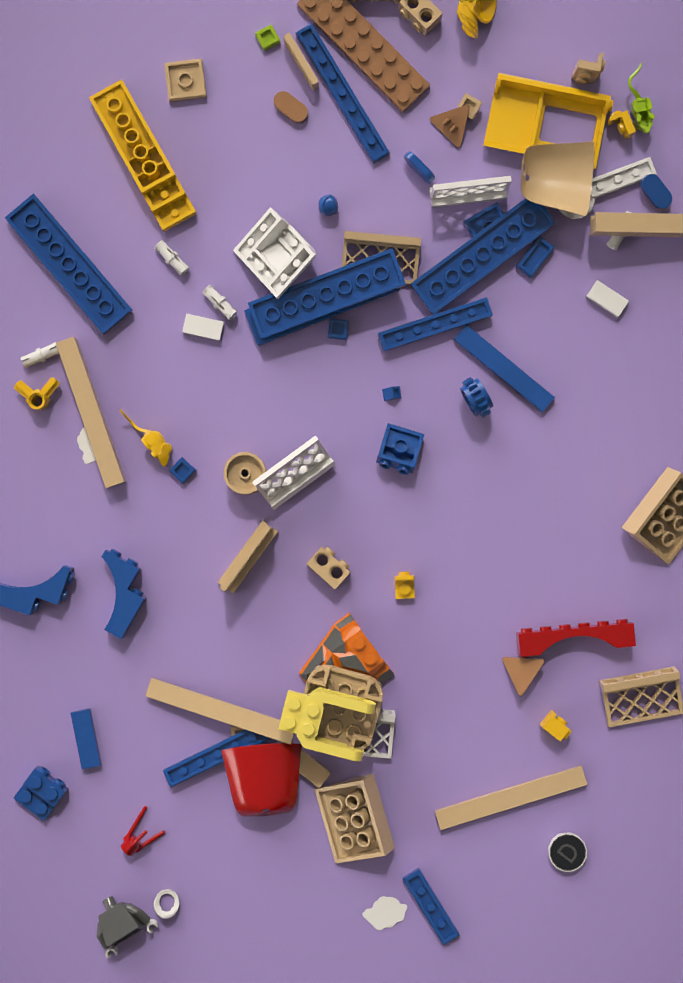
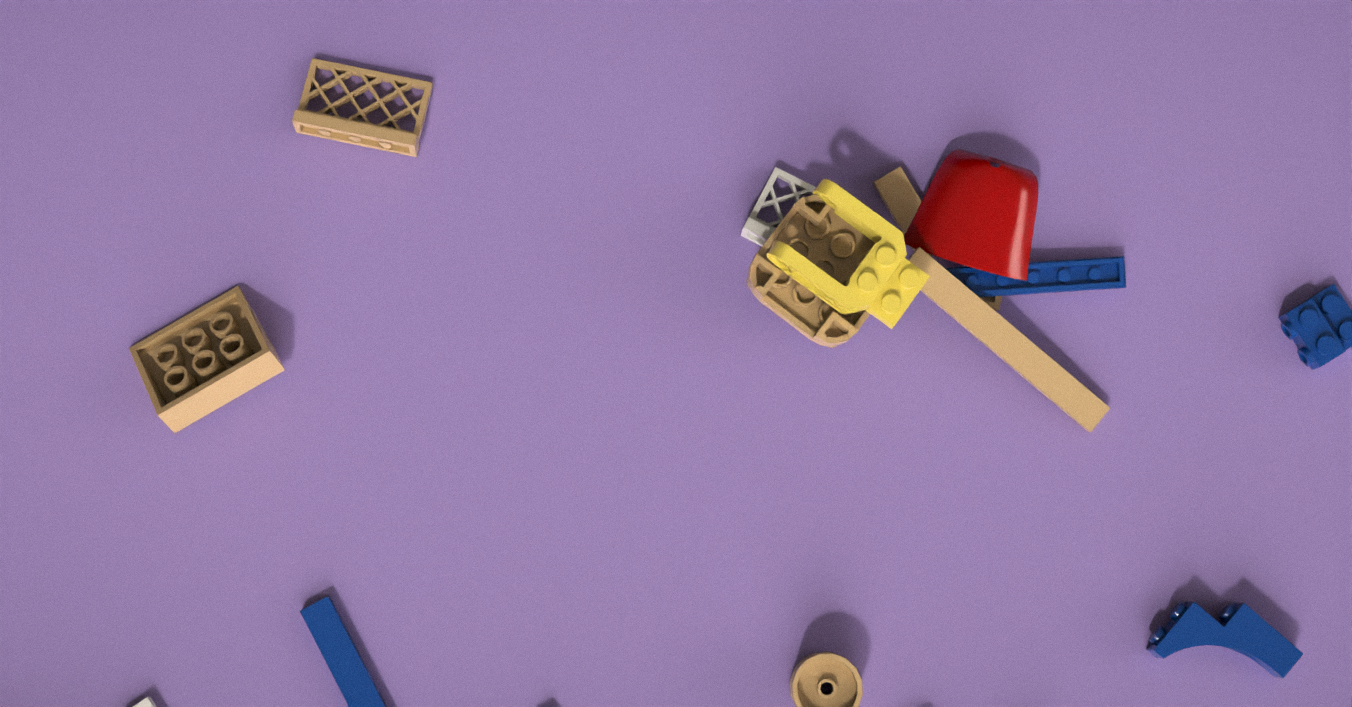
camera: 160 degrees left, 5 degrees down
(86, 738) = (1224, 380): blue tile -> none
(120, 923) = (1273, 88): dark grey torso -> none
(127, 601) = (1083, 564): blue arch -> none
(132, 844) = (1212, 196): red plant -> none
(166, 914) = (1209, 88): white piece -> none
(247, 557) = (873, 555): tan fence -> none
(293, 481) = (754, 644): white fence -> none
(324, 571) = (761, 487): tan brick -> none
(348, 649) = (772, 352): orange wedge -> none
(355, 819) = (865, 100): tan slope -> none
(399, 449) = (571, 627): blue plate -> none
(404, 585) = (650, 415): yellow bracket -> none
(476, 397) = (420, 660): blue gear -> none
(510, 797) = (620, 39): tan tile -> none
(522, 671) = (525, 215): medium nougat piece -> none
(536, 642) = (487, 250): red arch -> none
(555, 726) = (510, 114): yellow brick -> none

